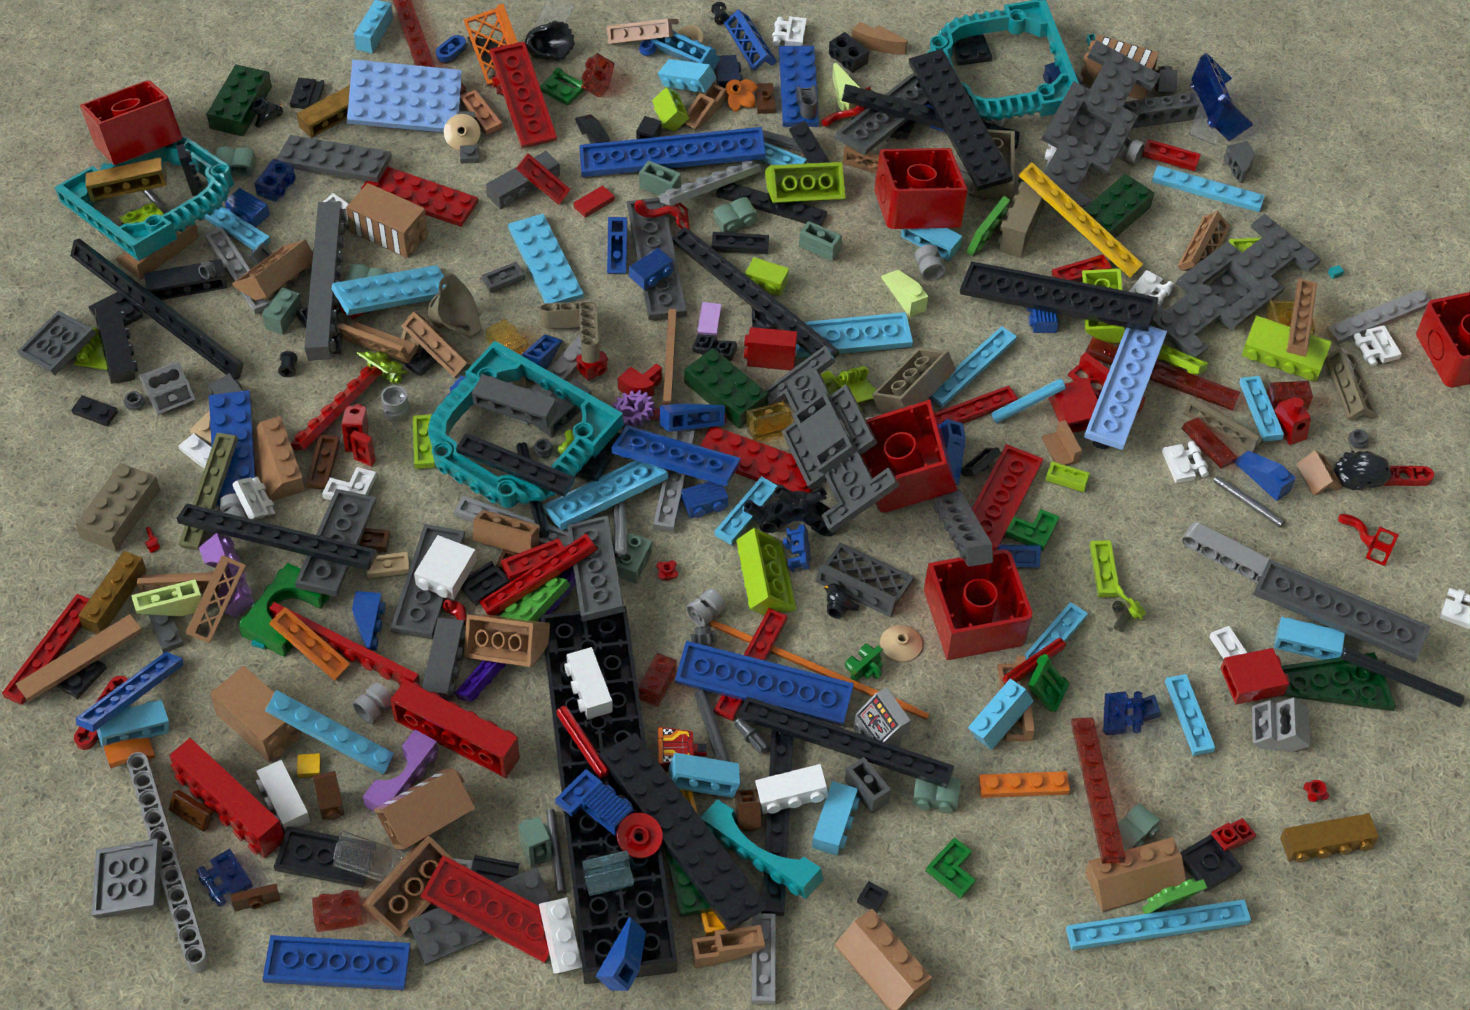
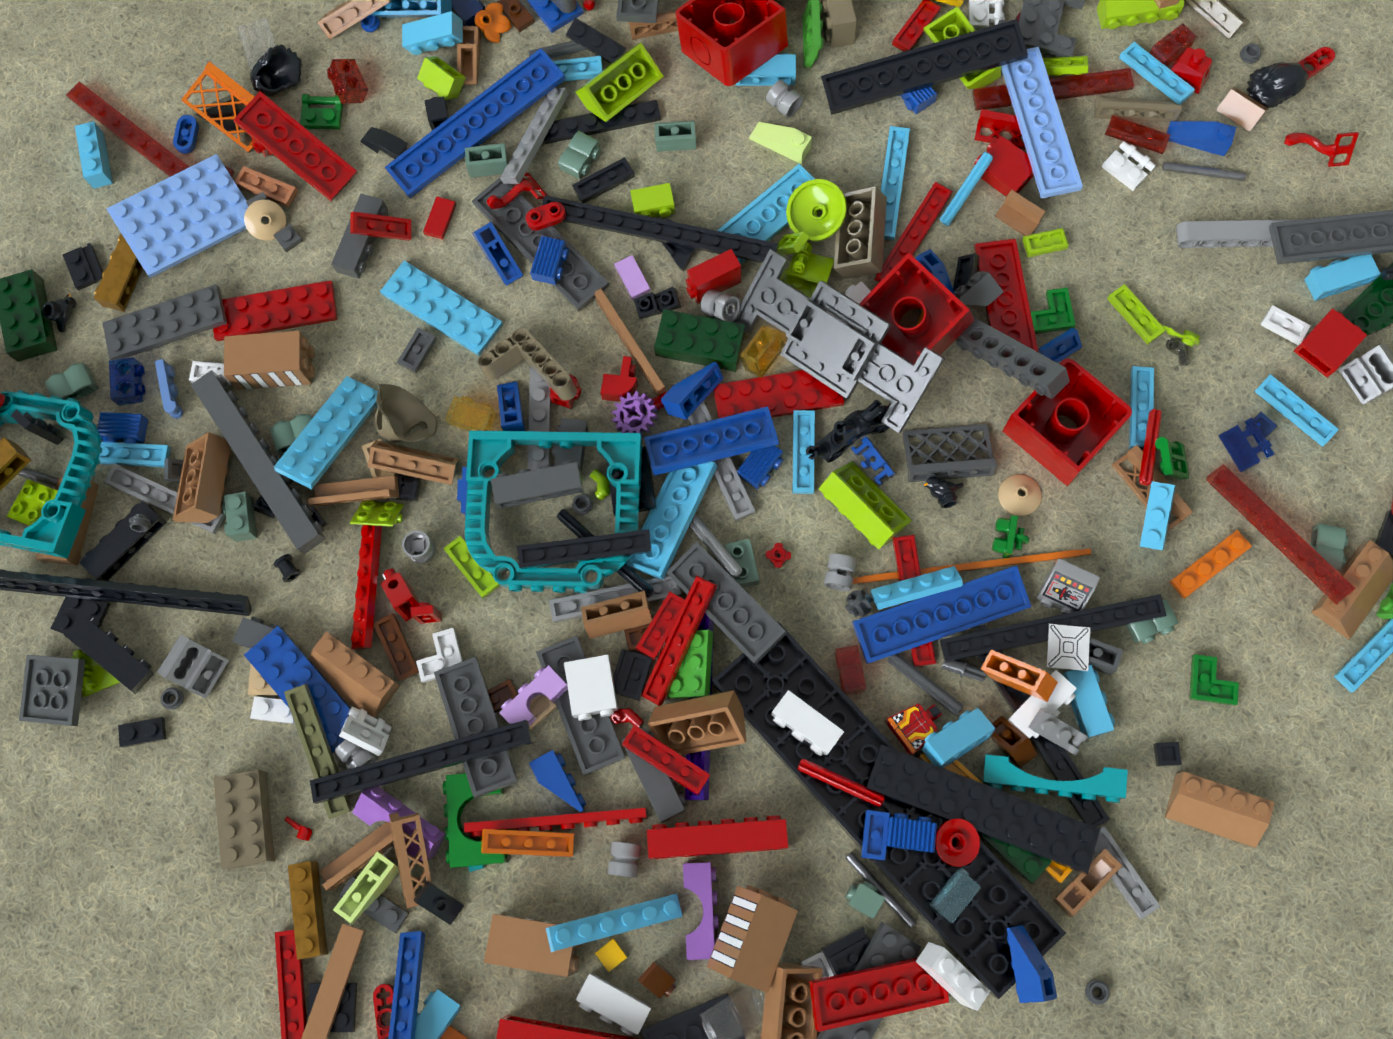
camera: 25 degrees left, 20 degrees up
(210, 645) = (438, 902): none -> black plate
(300, 201) = (168, 389): none -> medium blue plate
(411, 545) = (545, 683): none -> lavender arch
(460, 648) = (665, 759): none -> red plate
(674, 239) = (546, 217): none -> red plate
(752, 648) = (916, 587): none -> medium azure plate
(760, 371) = (720, 305): none -> light grey wheel
(786, 749) = (1019, 675): none -> orange brick
(788, 812) = (1057, 731): none -> light grey plate
(846, 760) = (1068, 647): none -> white sticker
(852, 361) = (792, 243): none -> lime plate
(890, 346) = (808, 201): none -> lime dish
(976, 473) = (980, 290): none -> dark grey slope

